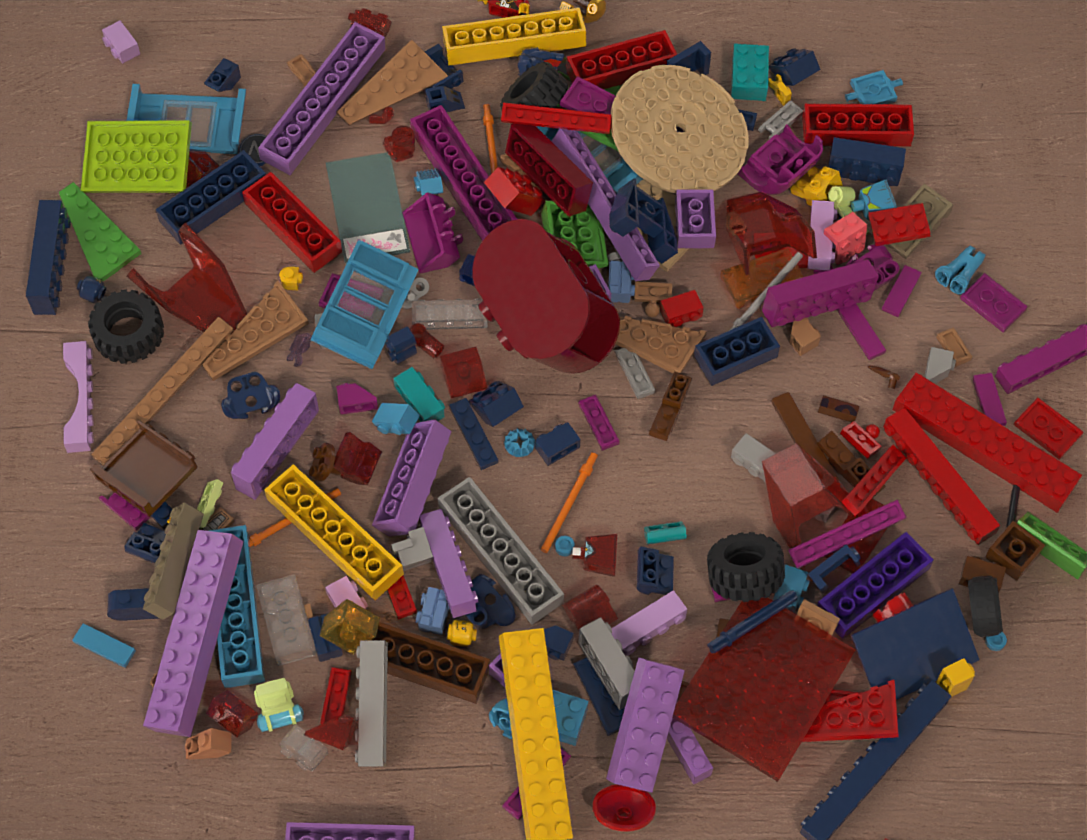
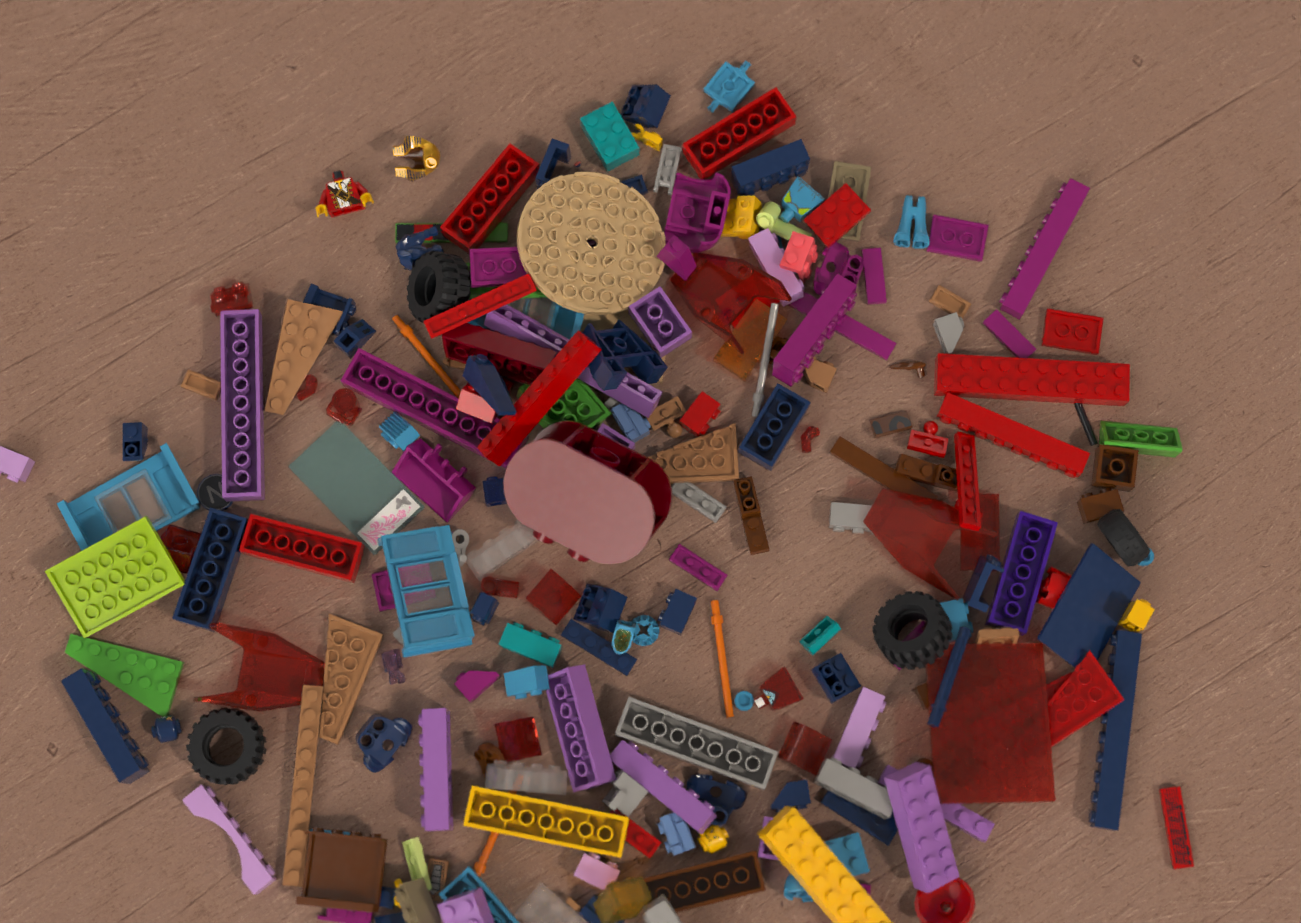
camera: 30 degrees left, 15 degrees up
(291, 278) = (338, 602): yellow plate -> none
(340, 487) = (526, 779): none -> clear brick
(498, 432) = (623, 636): none -> rock
(512, 35) = (374, 232): yellow brick -> none
(523, 174) = (489, 384): none -> dark blue wedge
(563, 202) = (539, 398): none -> red brick
(743, 180) = (677, 257): none -> magenta slope
(759, 377) = (807, 436): none -> clear red arm
(847, 534) = (979, 550): magenta tile -> none

